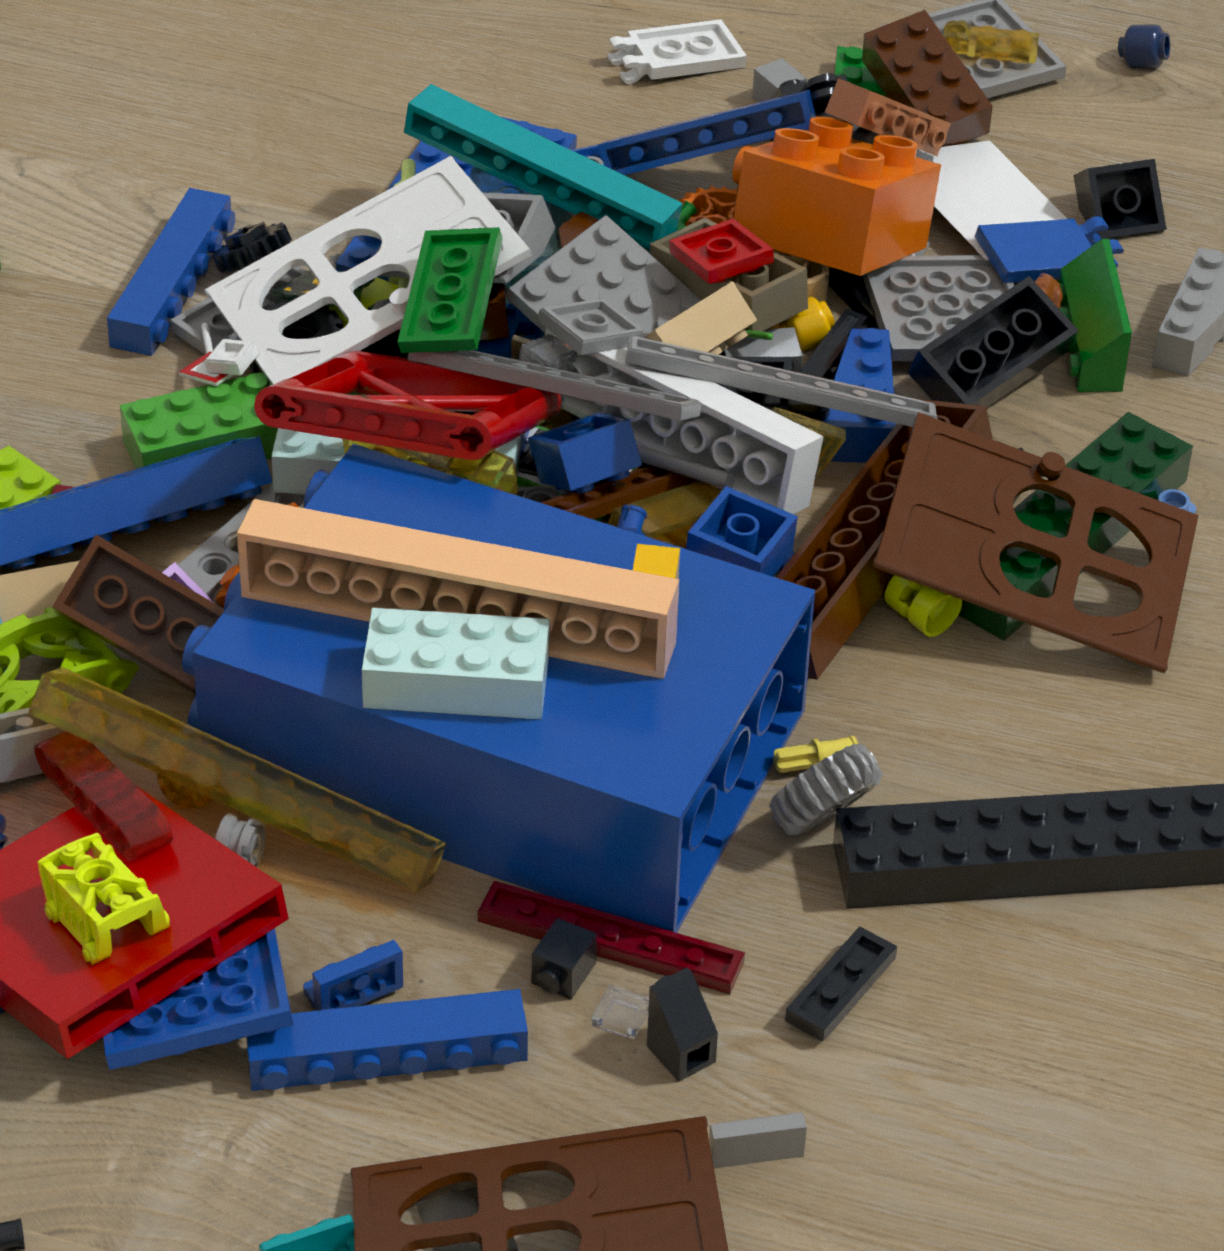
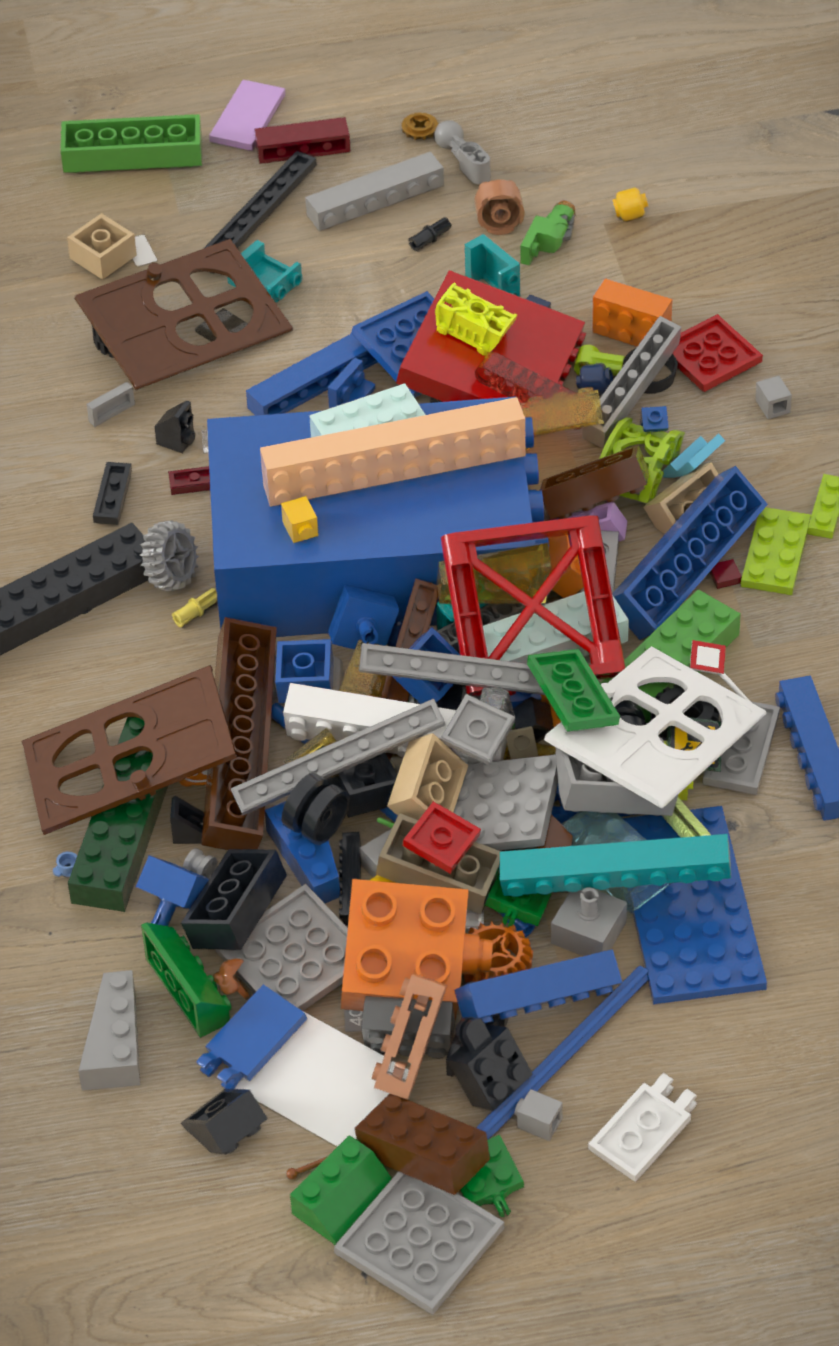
camera: 155 degrees right, 5 degrees up
(231, 357) = (696, 655): white tile -> none
(250, 245) = (777, 777): black gear -> none
(847, 343) = (315, 808): none -> black wheel
(992, 42) = (402, 1233): clear yellow hinge -> none
(1005, 430) = (199, 863): none -> light grey wheel
(1012, 147) = (292, 1173): none -> dark orange hinge
(1039, 109) = (339, 1190): none -> green slope
(1055, 395) = (172, 885): none -> blue brick
(1144, 46) = (283, 1307): dark blue head -> none

